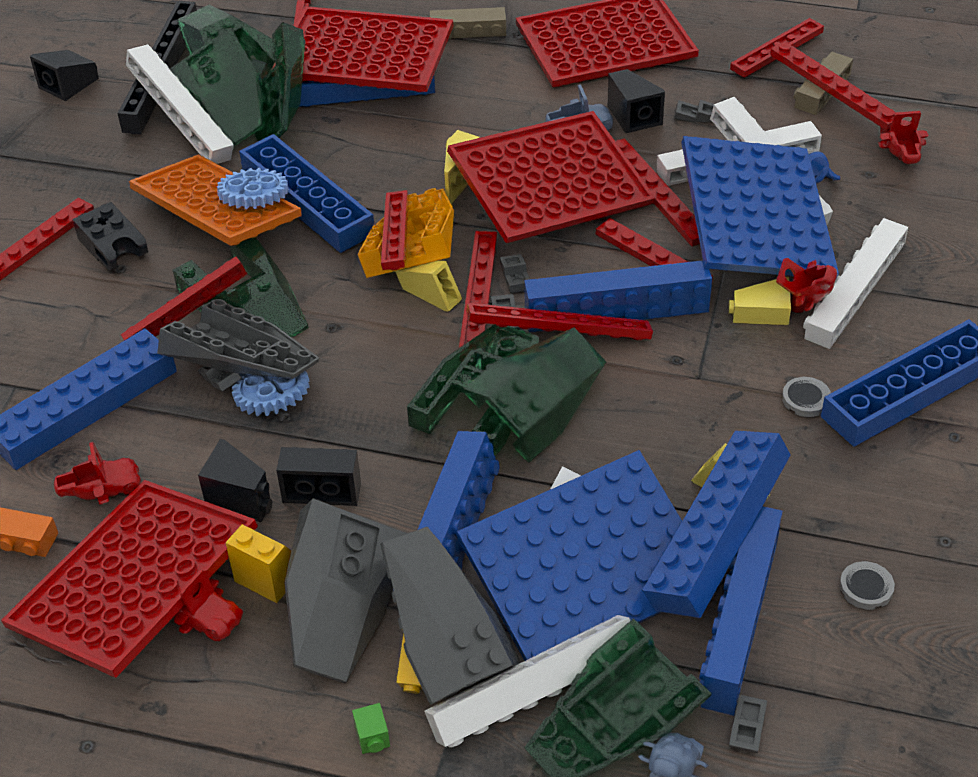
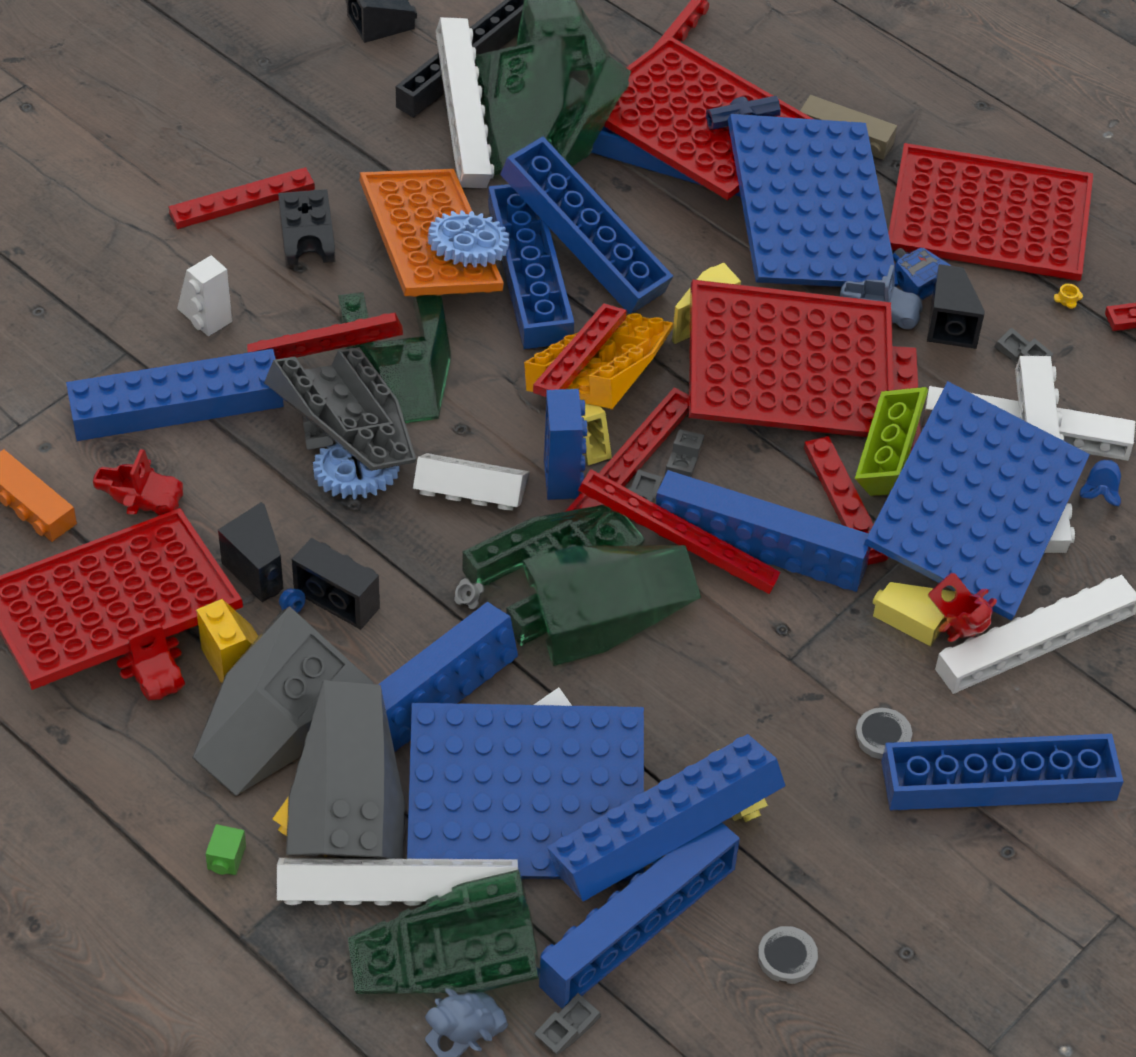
camera: 25 degrees right, 5 degrees up
(63, 312) = (206, 296): none -> white wedge
(288, 508) = (292, 597): none -> blue plate
(334, 145) = (586, 225): none -> blue brick
(370, 357) = (470, 480): none -> white slope
(399, 30) = (719, 116): none -> dark blue piece
(421, 434) = (461, 593): none -> light grey plate
(432, 295) = (564, 443): none -> blue brick
(484, 71) = (810, 200): none -> blue plate
(594, 86) = (917, 271): none -> blue torso
(665, 196) = (890, 439): none -> lime slope
(698, 67) = (1068, 295): none -> yellow plate

